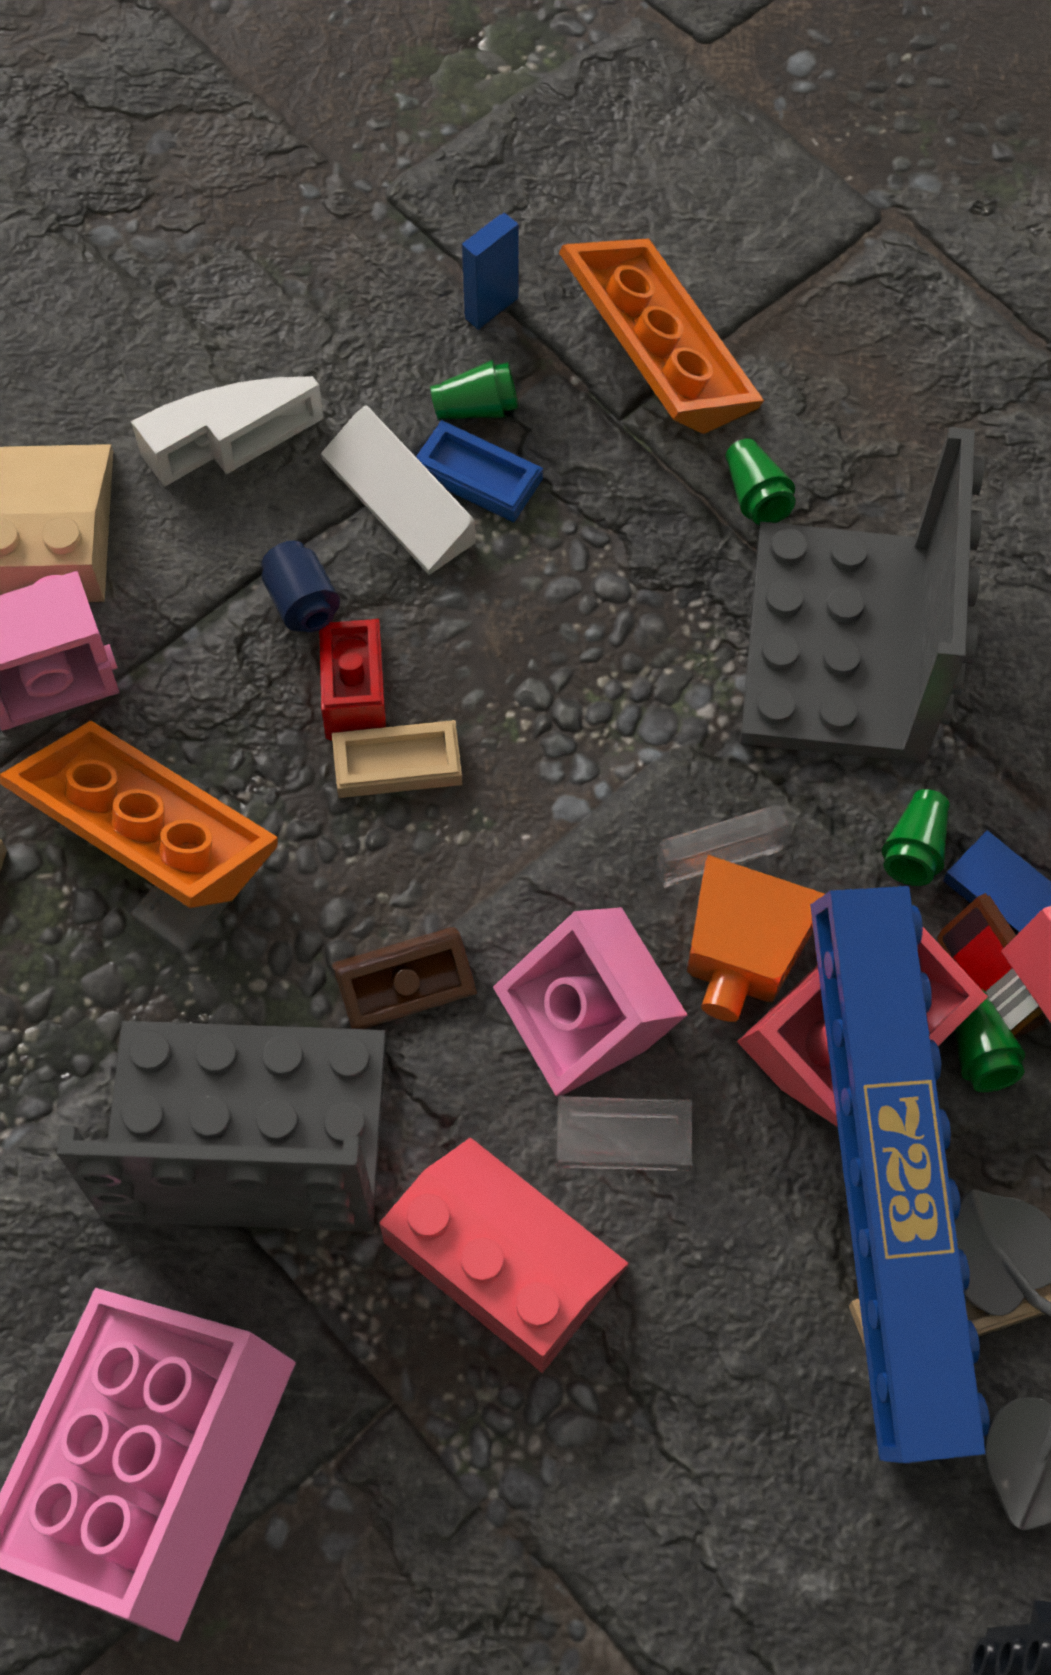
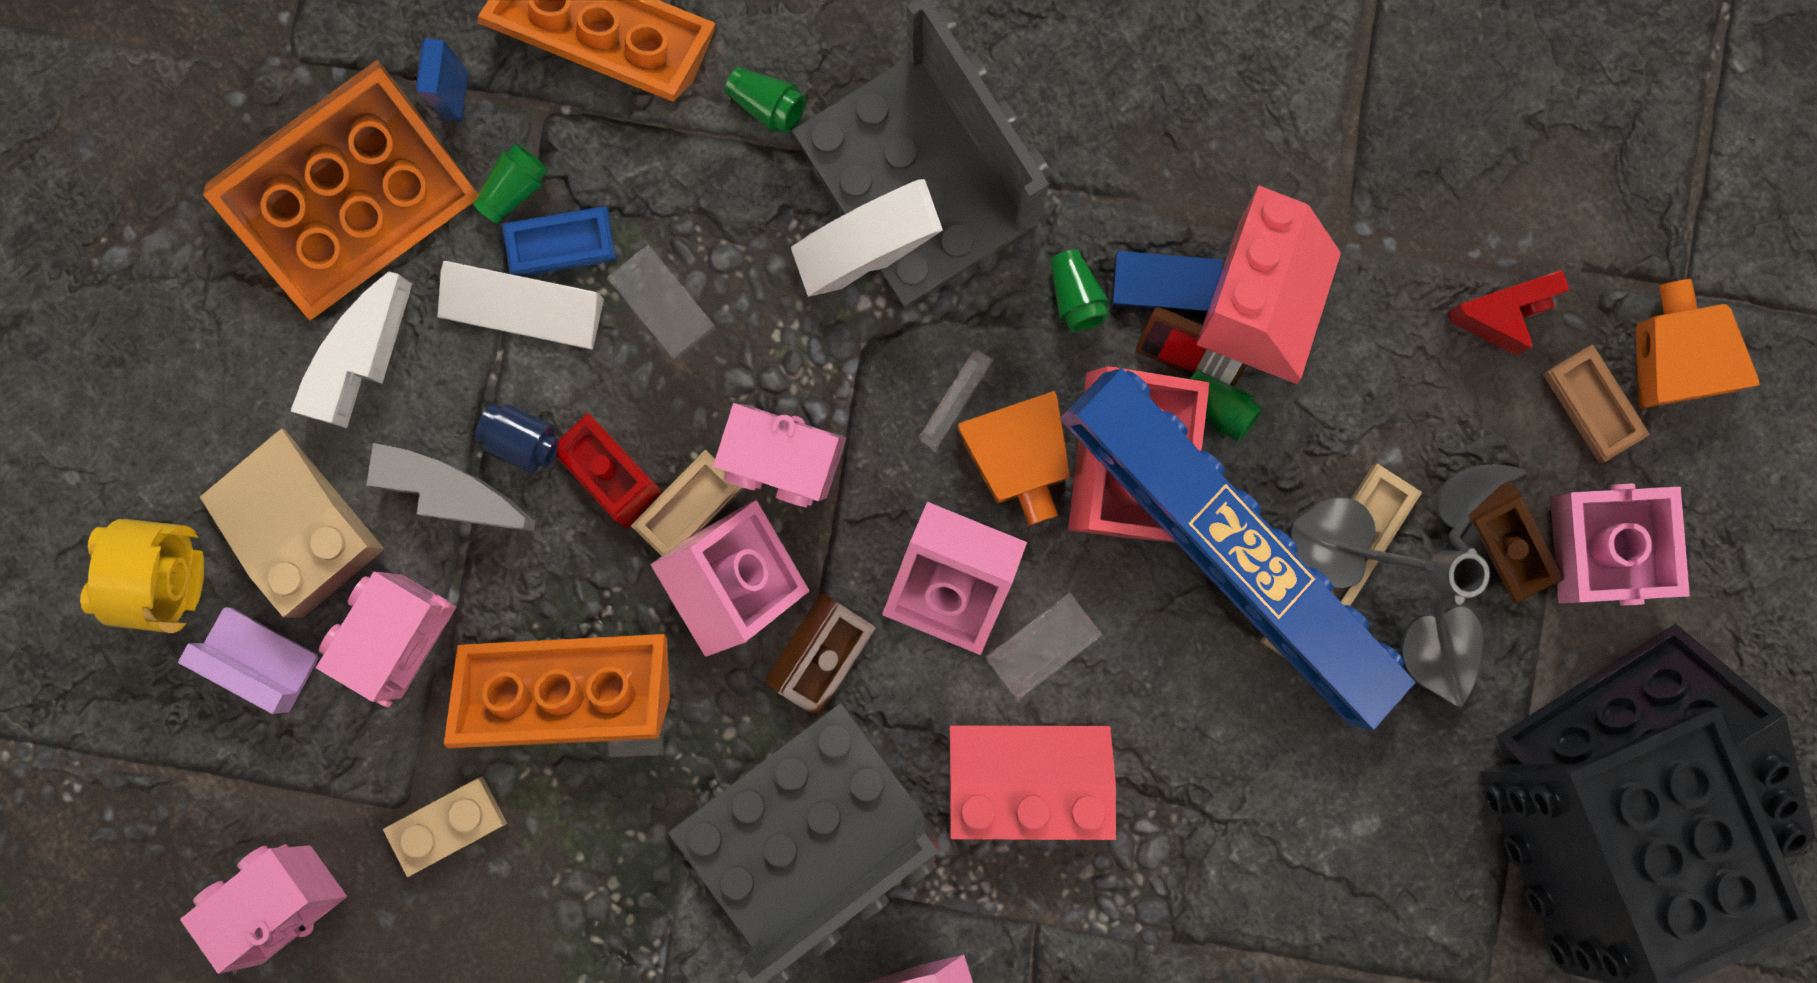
camera: 35 degrees left, 20 degrees up
(196, 582) = (443, 489): none -> light grey slope
(332, 298) = (341, 190): none -> orange slope
(380, 836) = (730, 579): none -> bright pink slope
(520, 757) = (779, 453): none -> bright pink brick
(523, 579) = (661, 302): none -> clear tile
(753, 635) = (867, 238): none -> white slope

